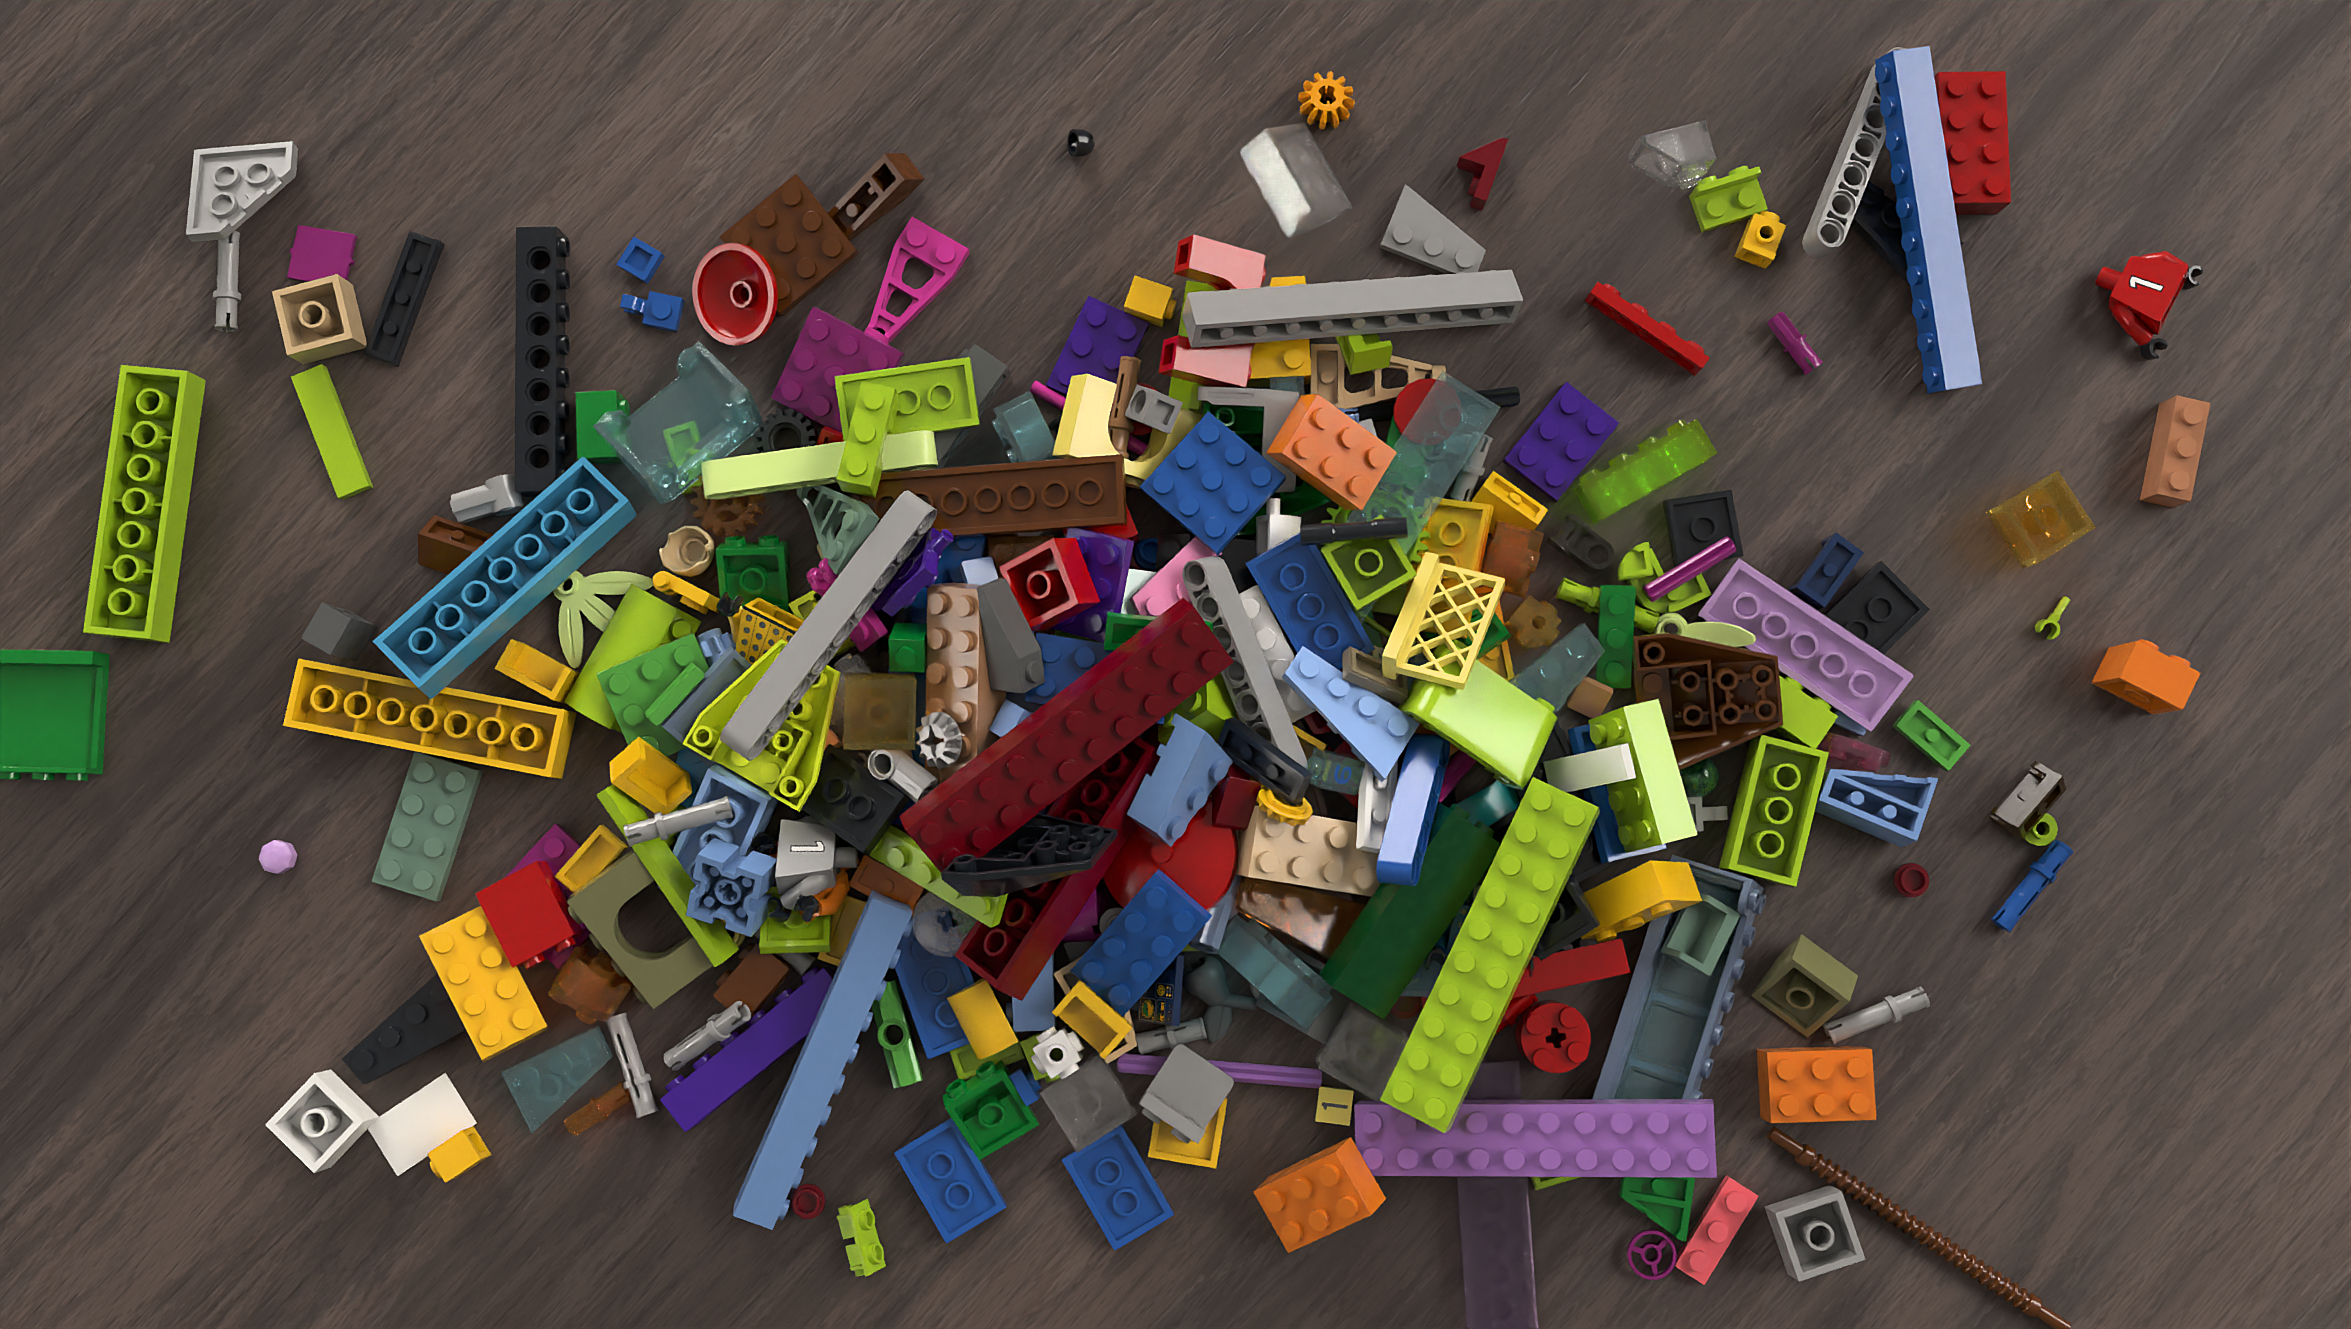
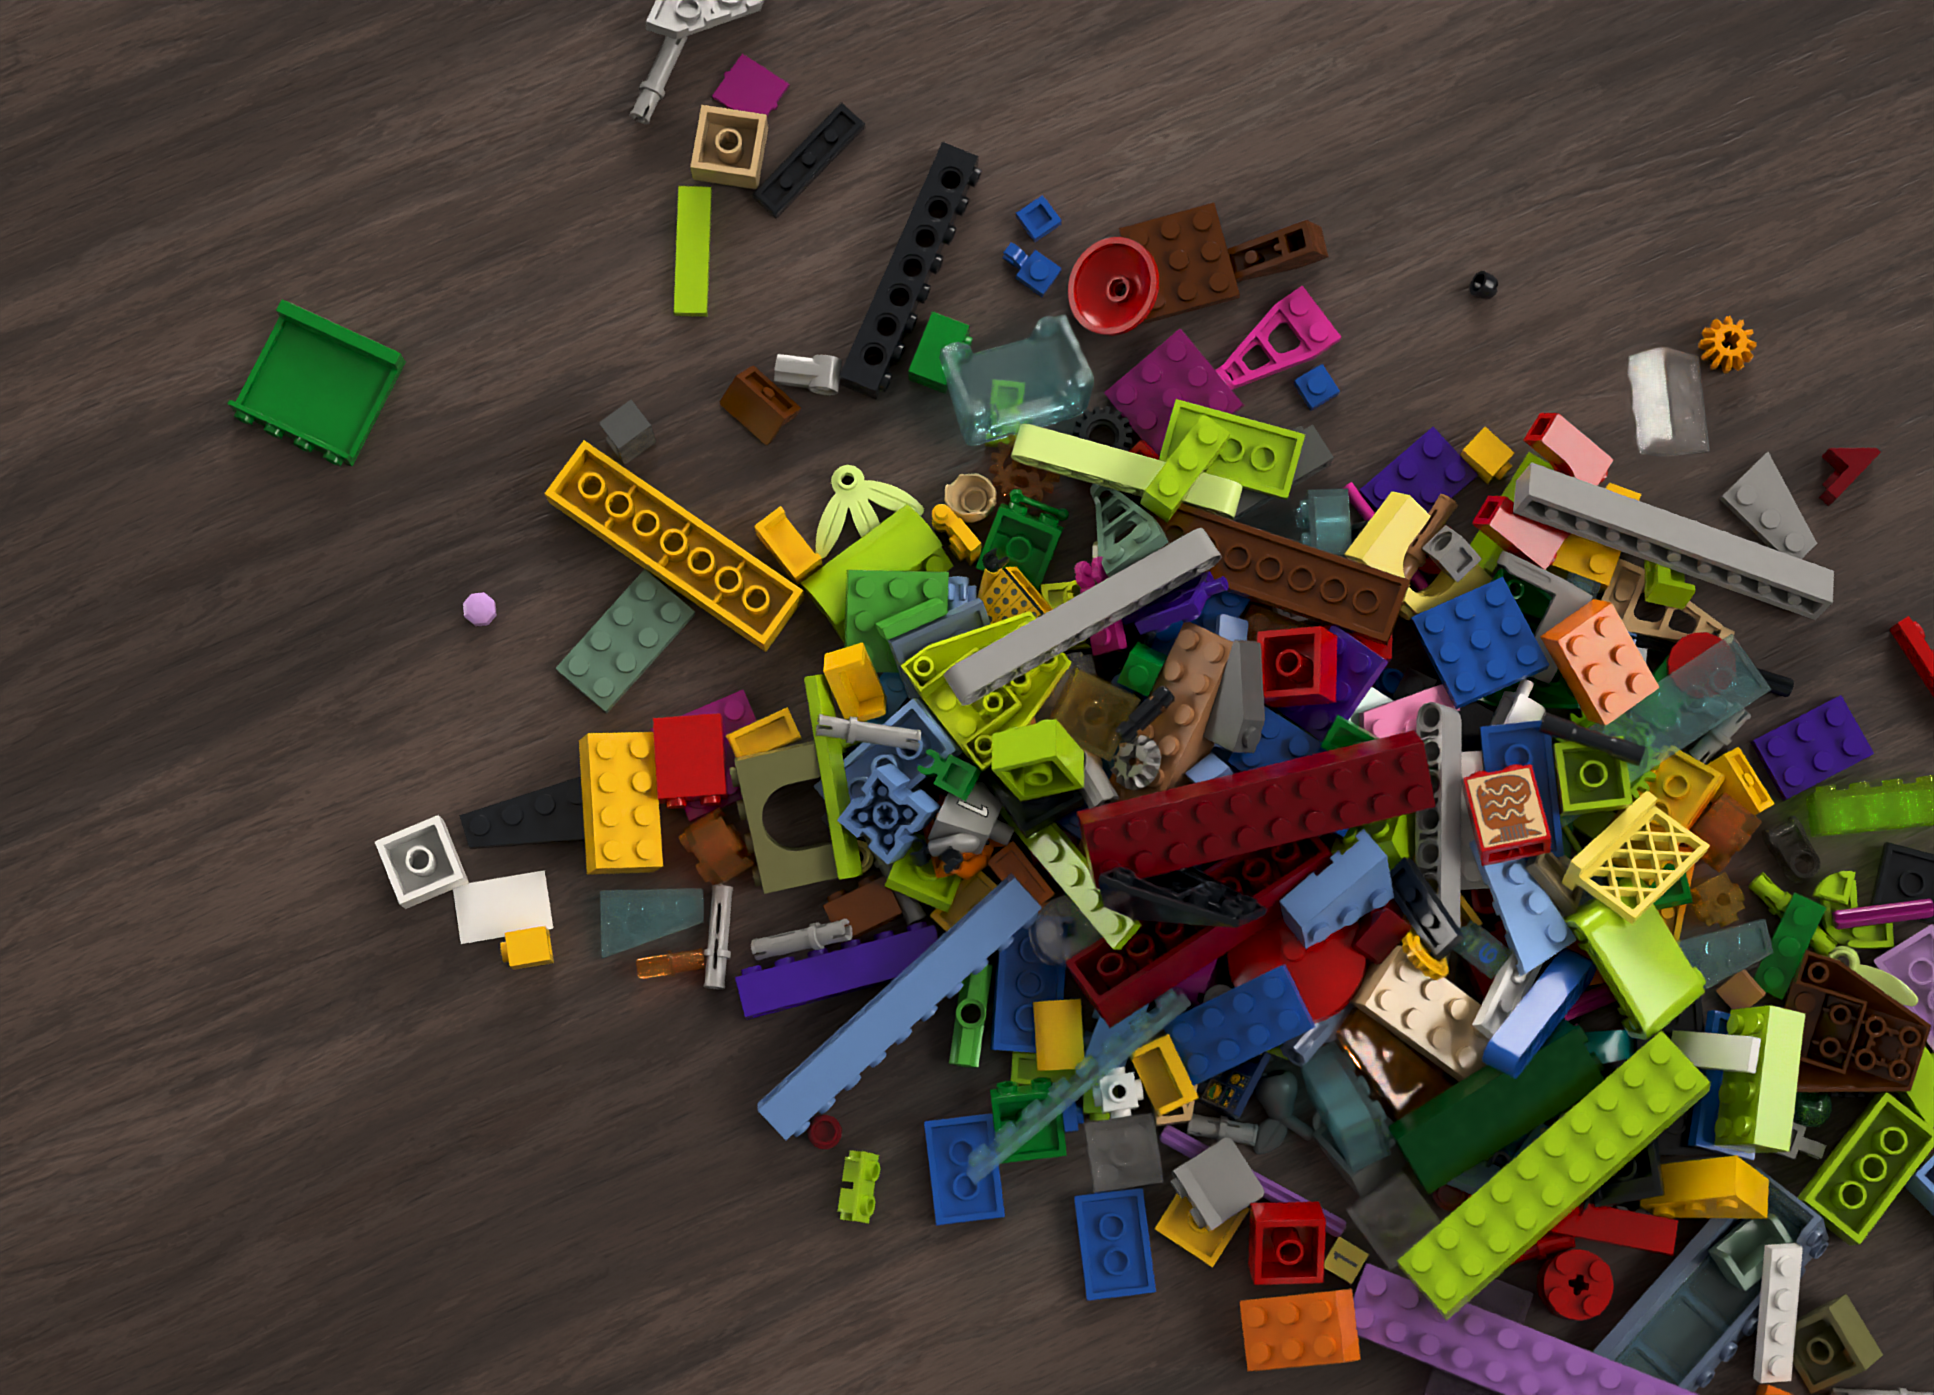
camera: 15 degrees right, 5 degrees down
(144, 504) = (501, 243): lime brick -> none
(506, 578) = (802, 449): dark azure brick -> none
(729, 532) = (1017, 496): none -> green hinge
(773, 825) = (952, 775): none -> green plate
(843, 781) = (1037, 760): none -> lime brick
(926, 692) = (1145, 714): none -> black axle
(966, 305) = (1316, 387): none -> blue plate
(1009, 1073) = (1065, 1091): none -> clear light blue plate
(1273, 1118) = (1286, 1243): none -> red brick
(1304, 637) = (1506, 814): none -> brick
(1747, 981) = (1777, 1312): none -> white plate

